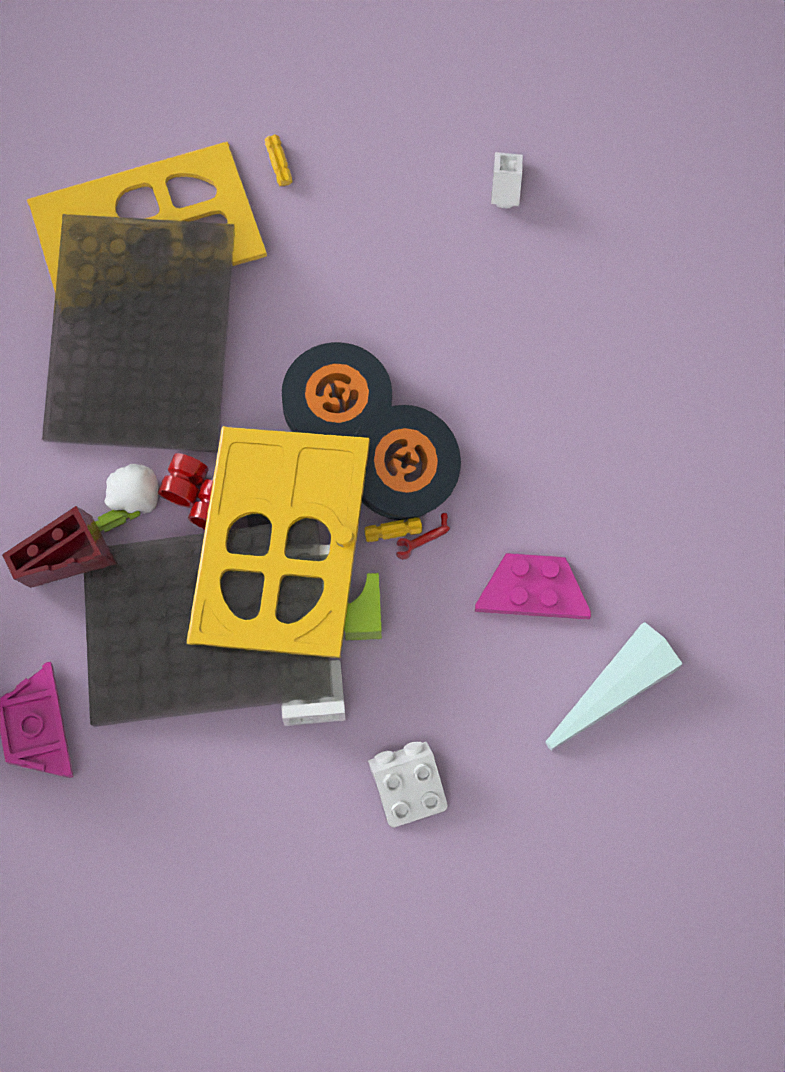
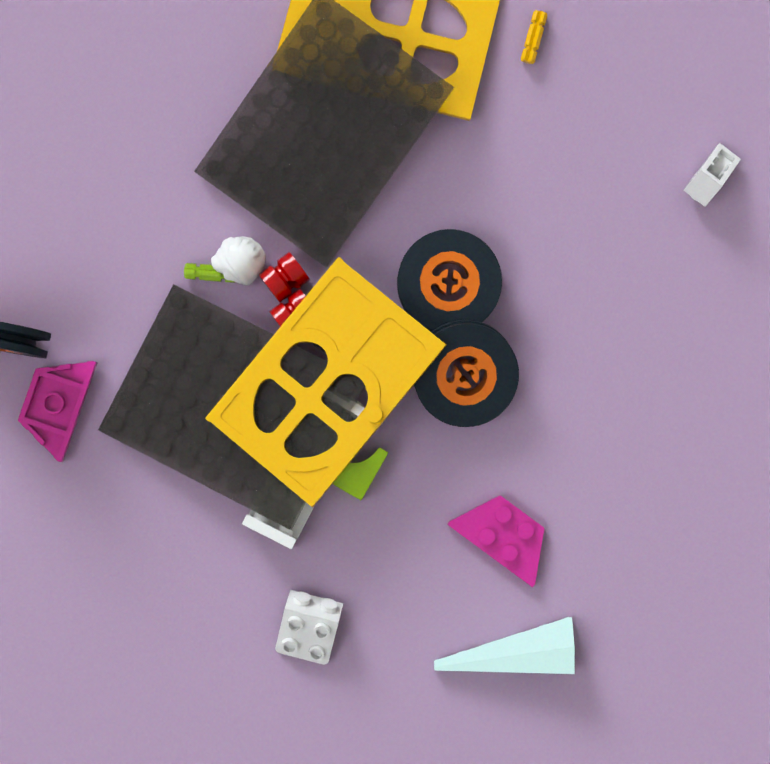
camera: 30 degrees right, 15 degrees up
(59, 550) = (155, 279): dark red wedge -> none
(393, 529) = (423, 419): yellow axle -> none
(423, 539) = (444, 441): red piece -> none

